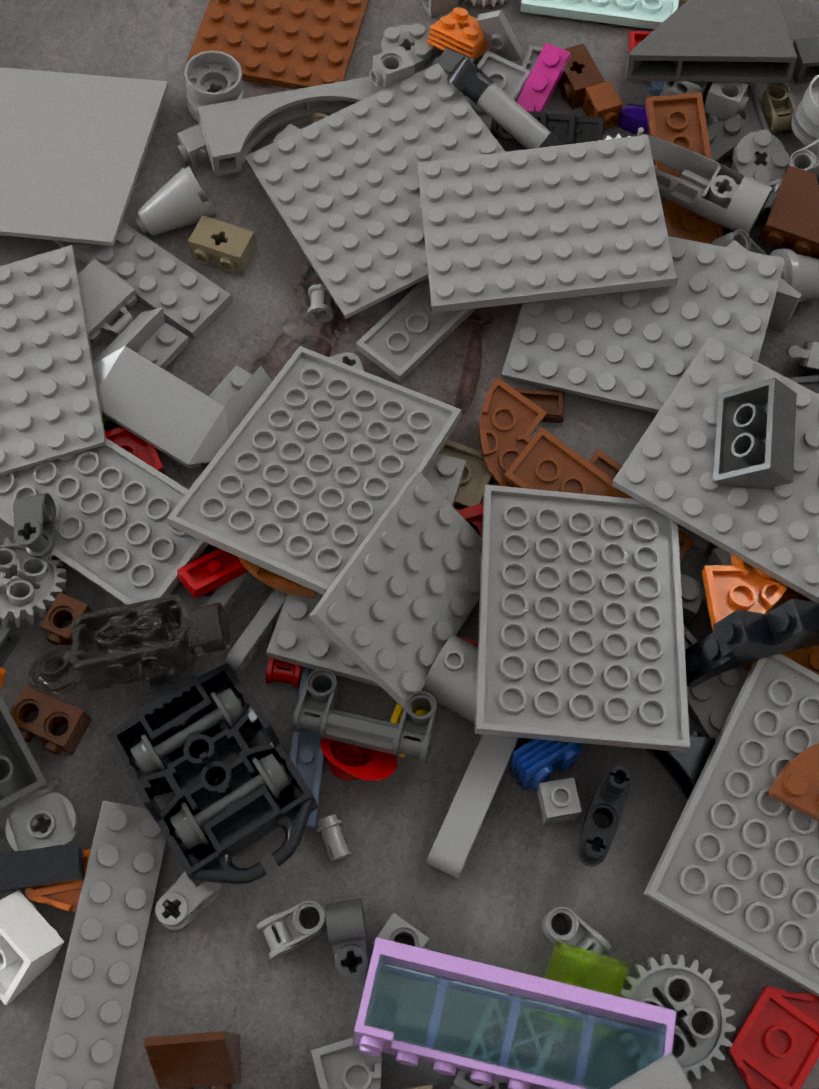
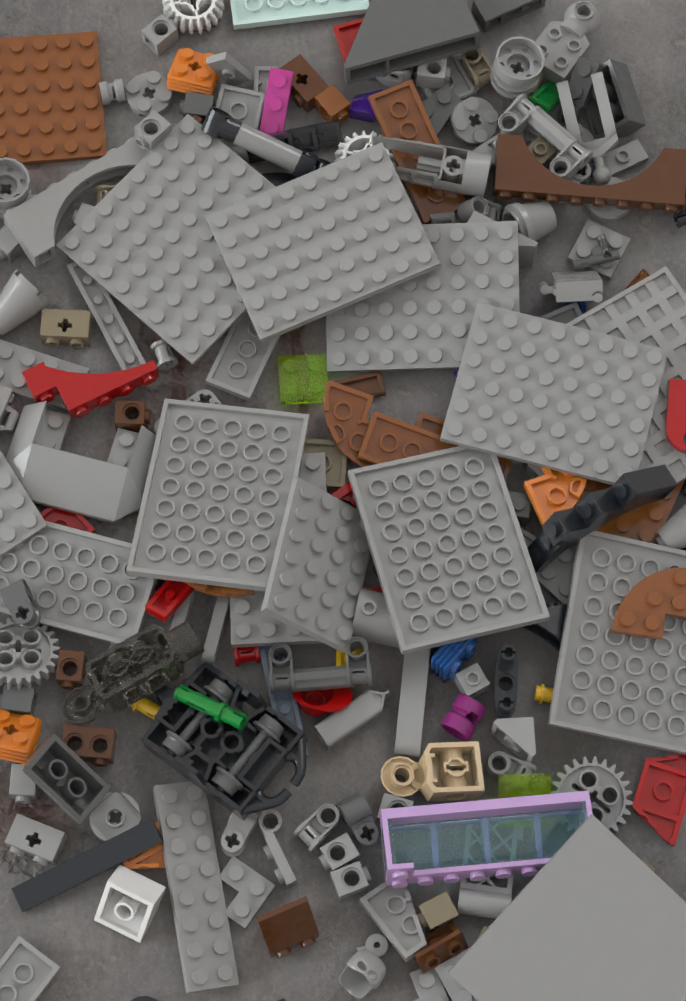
camera: 20 degrees left, 5 degrees up
(135, 694) = (146, 707): none -> yellow pin
(177, 984) = (251, 890): none -> light grey plate
(214, 312) = (86, 391): none -> red arch
(214, 731) = (219, 711): none -> green pin
(223, 940) = (273, 850): none -> light grey plate
(252, 347) = (124, 408): none -> reddish brown brick
(273, 260) = (107, 319): none -> light grey plate
(292, 1018) = (344, 890): none -> light grey brick
(322, 975) = (346, 845): none -> light grey brick
(333, 838) = (323, 758): light grey pin -> none
(368, 33) = (107, 94): none -> light grey wheel
(388, 796) = (351, 719): none -> light grey piece
(468, 374) = (302, 378): none -> clear neon green plate
(479, 913) = (443, 773): none -> tan brick
(533, 844) = (464, 717): none -> magenta wheel
(598, 895) = (516, 736): none -> light grey slope
(649, 848) = (543, 694): none -> yellow pin
(755, 436) = (533, 375): dark grey slope -> none

